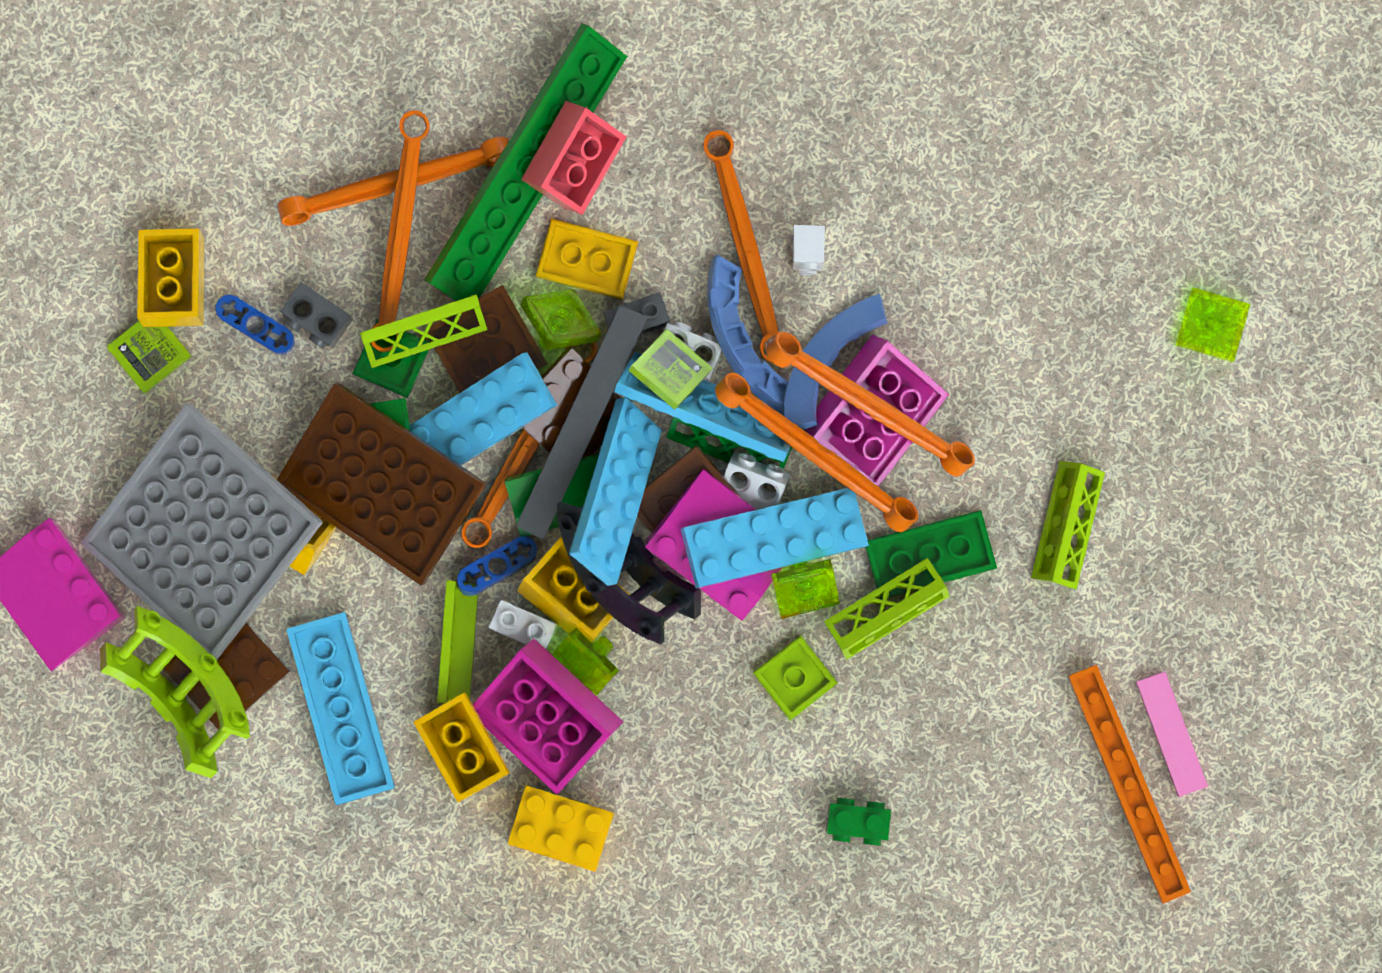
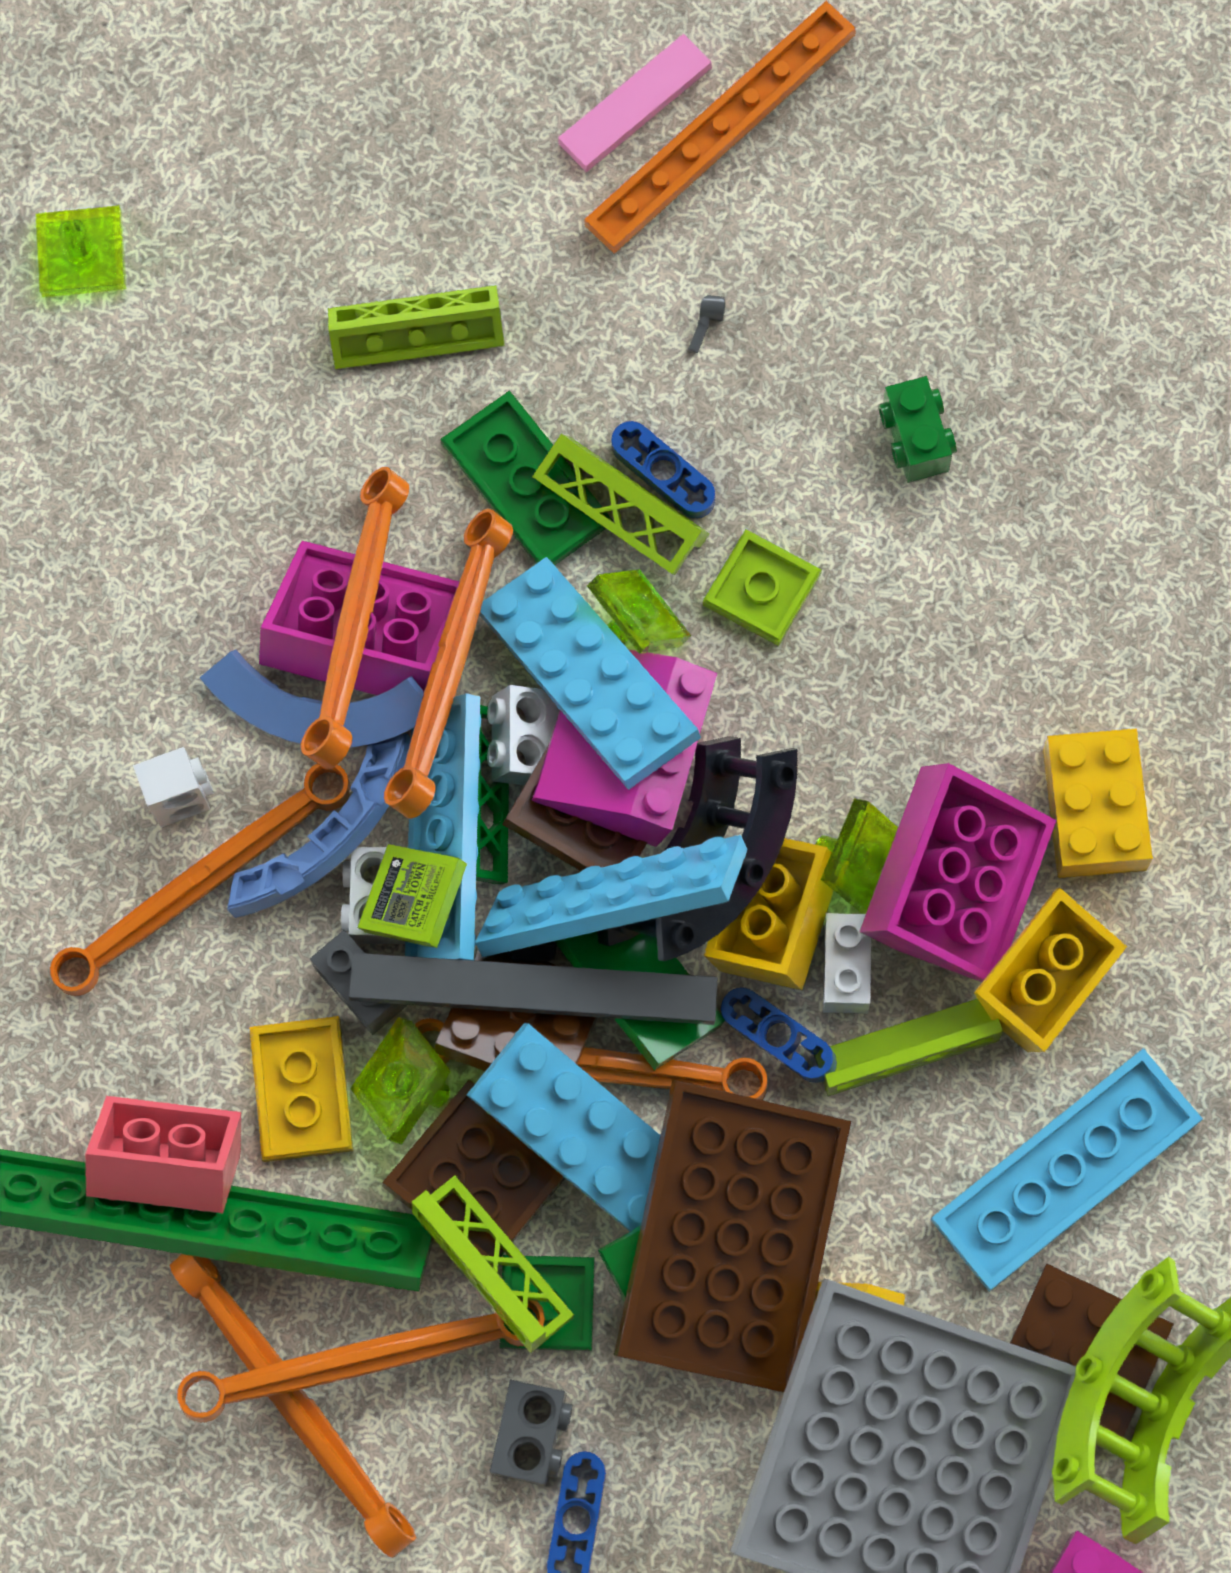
camera: 110 degrees left, 10 degrees down
(925, 643) = (632, 458): none -> blue beam
(1001, 724) = (711, 308): none -> dark grey hand

